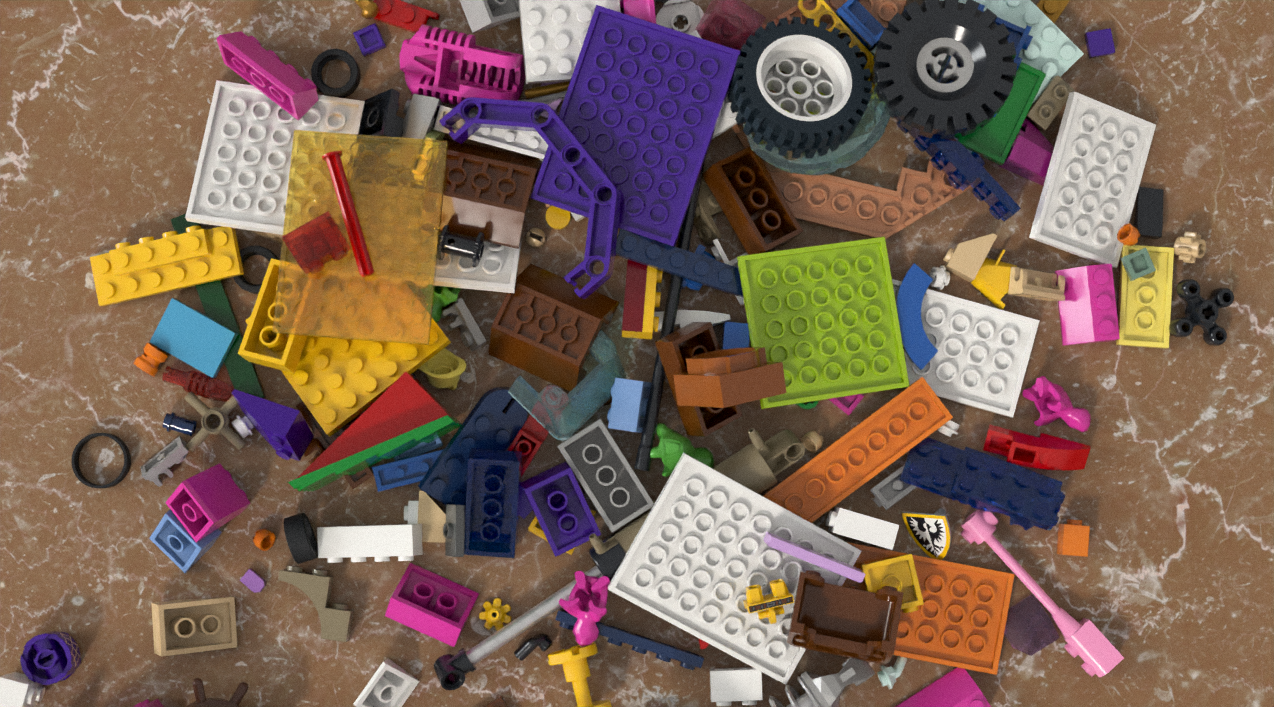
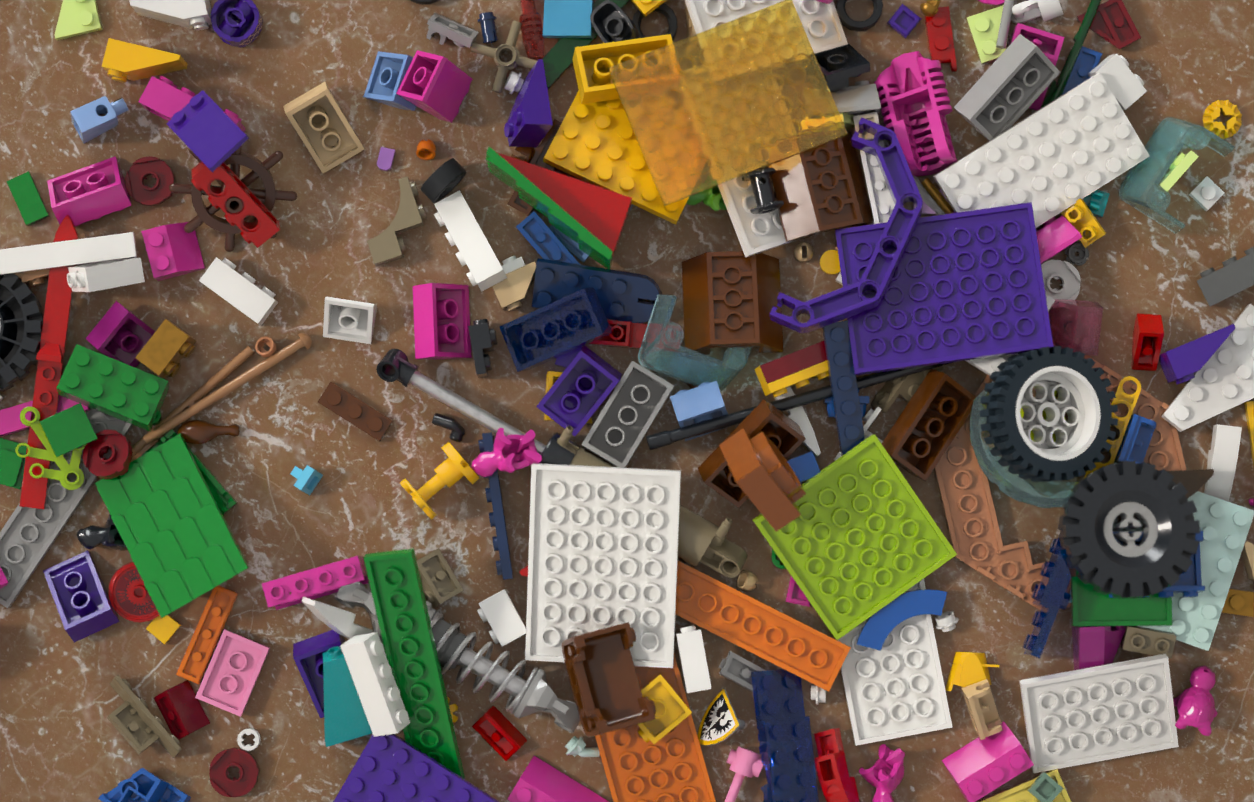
camera: 60 degrees right, 0 degrees up
(233, 306) = (613, 23): none -> black piece
(317, 243) = (703, 68): clear red slope -> none
(349, 212) = (742, 81): red axle -> none
(444, 369) = (649, 230): light yellow piece -> none
(454, 530) = (515, 308): dark grey plate -> none
(468, 576) = (482, 341): none -> black plate
(470, 332) = (693, 236): light grey plate -> none
(501, 612) = (461, 386): yellow plant -> none
(672, 447) = (682, 459): bright green animal -> none
(758, 602) = (597, 614): yellow hips -> none
(814, 557) = (646, 628): lavender tile -> none
(968, 256) = (977, 637): tan slope -> none
(1099, 43) = (1226, 662): dark purple tile -> none
(1124, 88) = (1196, 703): none -> dark pink animal
(1128, 235) = (1067, 768): orange hinge -> none
(1149, 212) = (1097, 778): black slope -> none

